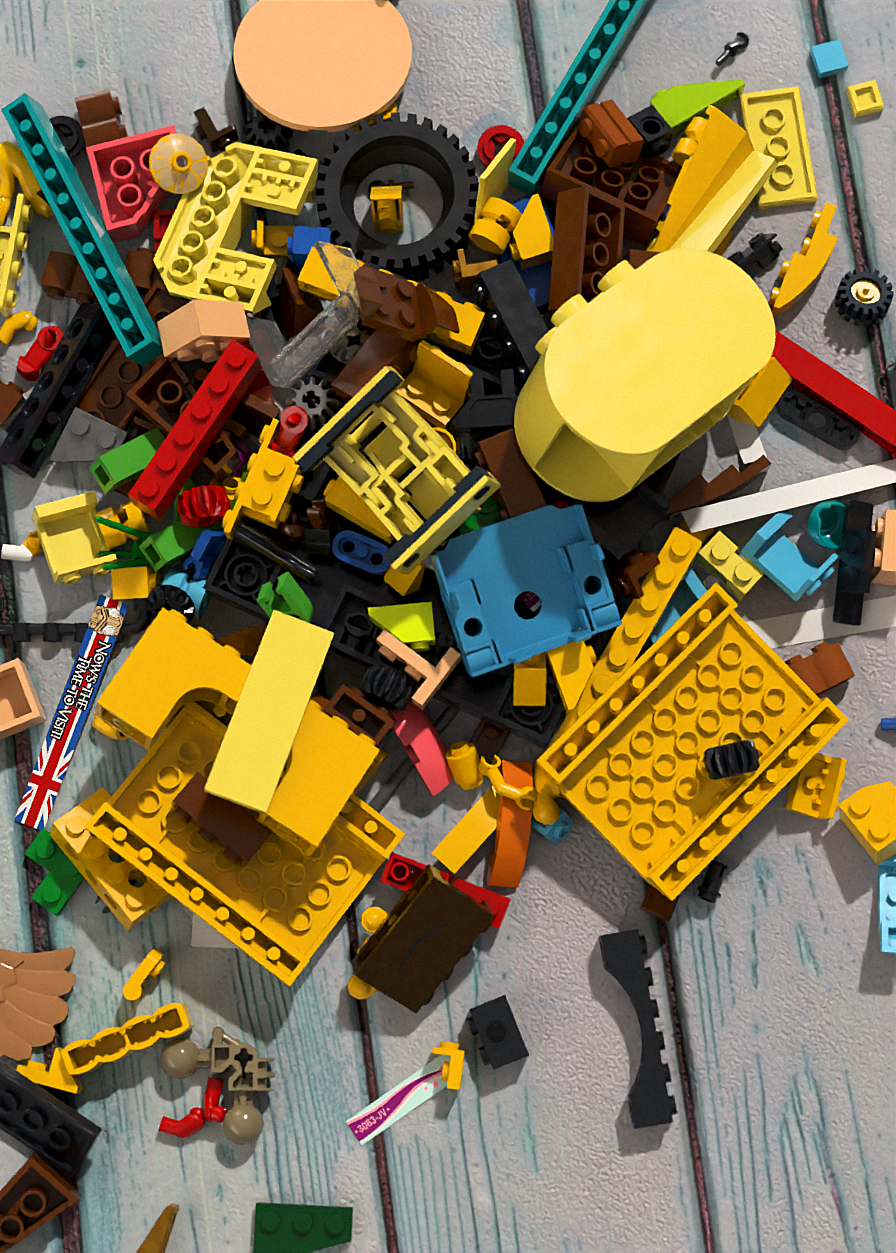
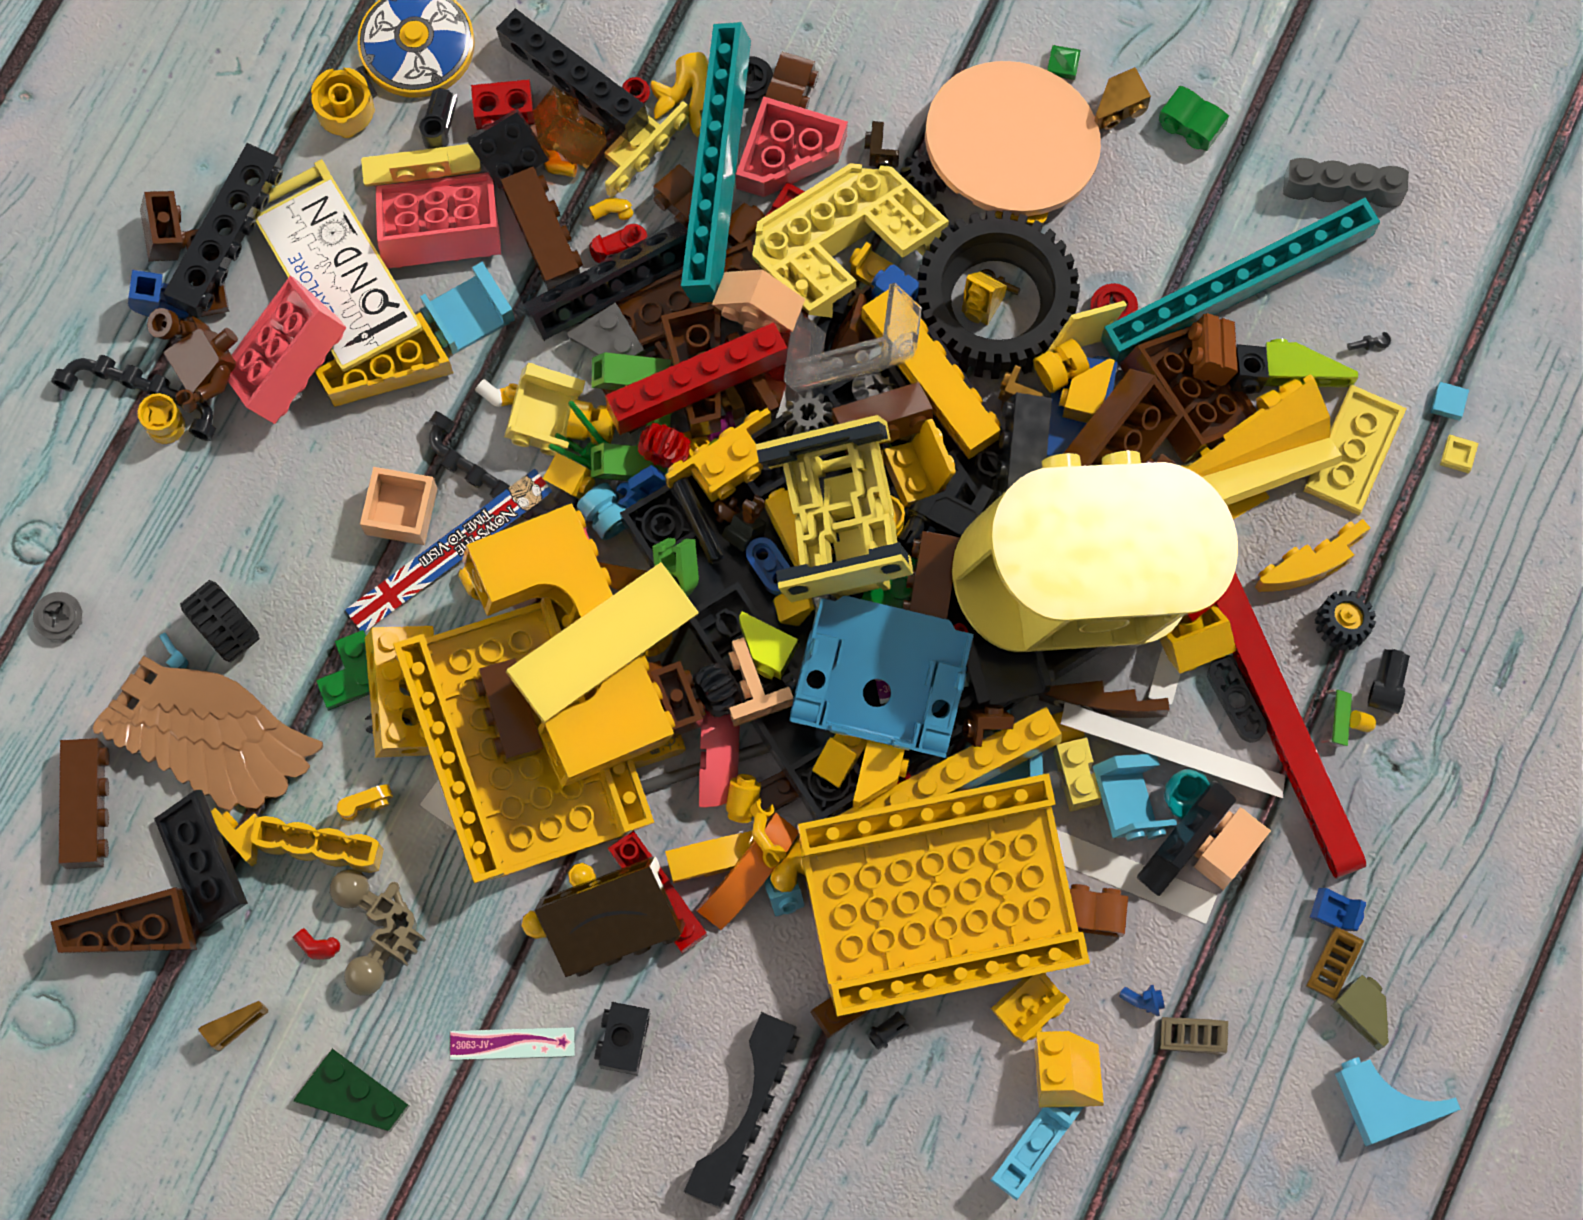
camera: 30 degrees right, 5 degrees down
(167, 172) = (816, 158): tan dish -> none
(176, 598) = (593, 510): black gear -> none
(212, 1095) = (347, 948): red arm -> none
(292, 427) = (778, 424): red piece -> none
(400, 306) = (930, 377): reddish brown piece -> none
(452, 1070) = (566, 1045): yellow bracket -> none
(731, 759) = (965, 930): black gear -> none
(760, 250) = (1281, 526): black hinge -> none

